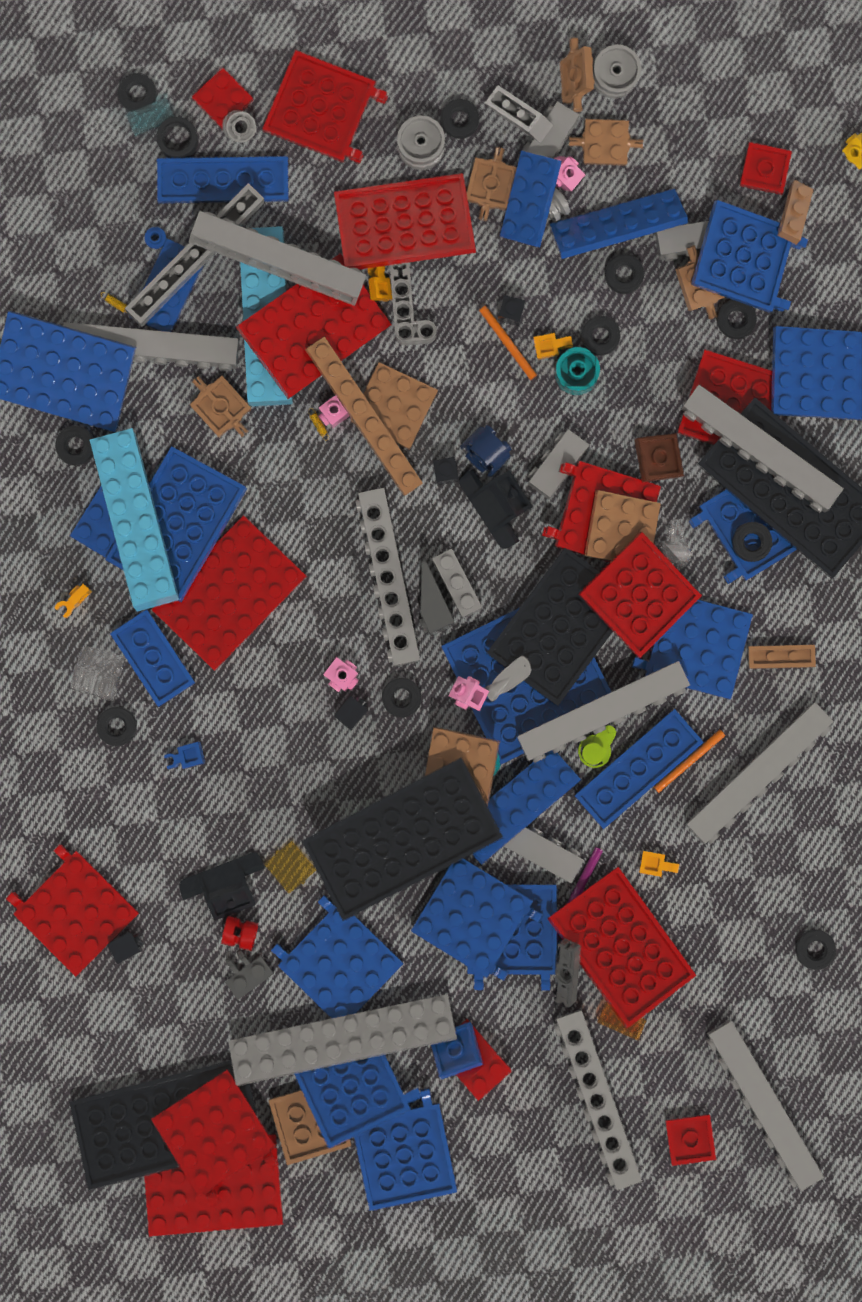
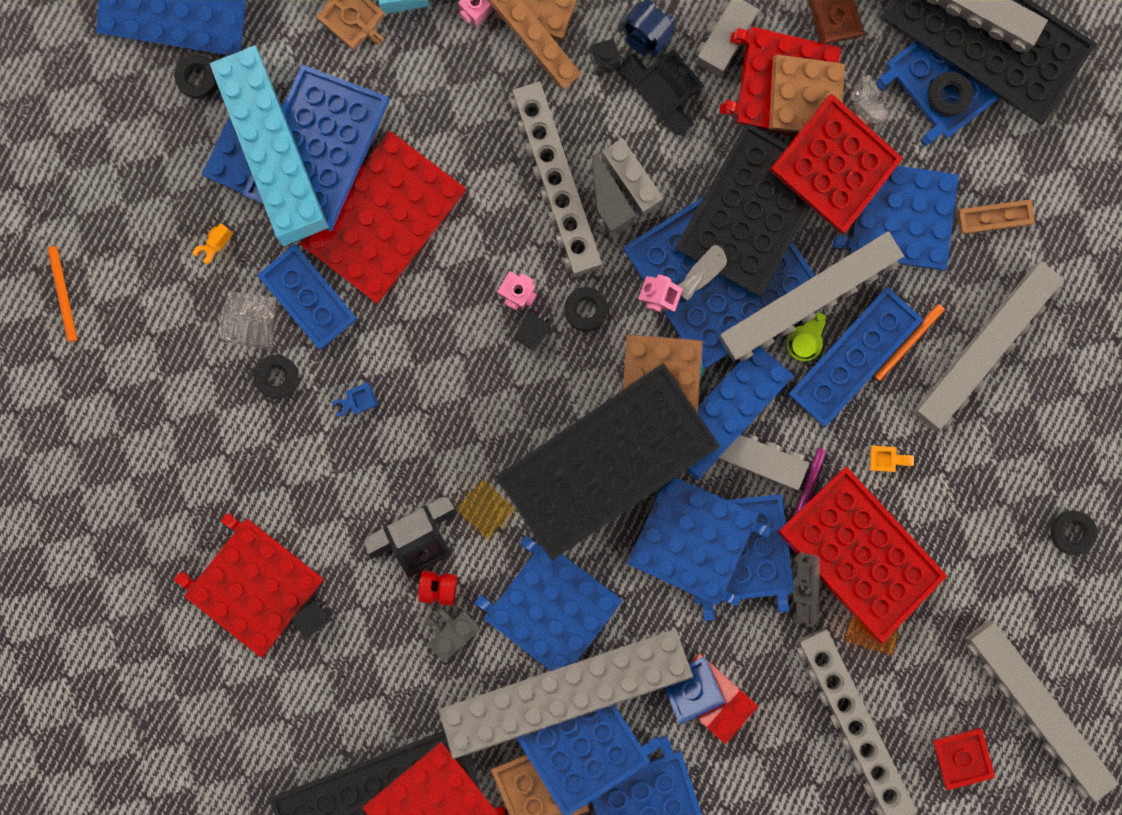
camera: 10 degrees left, 0 degrees up
(318, 424) = (460, 24): yellow piece -> none

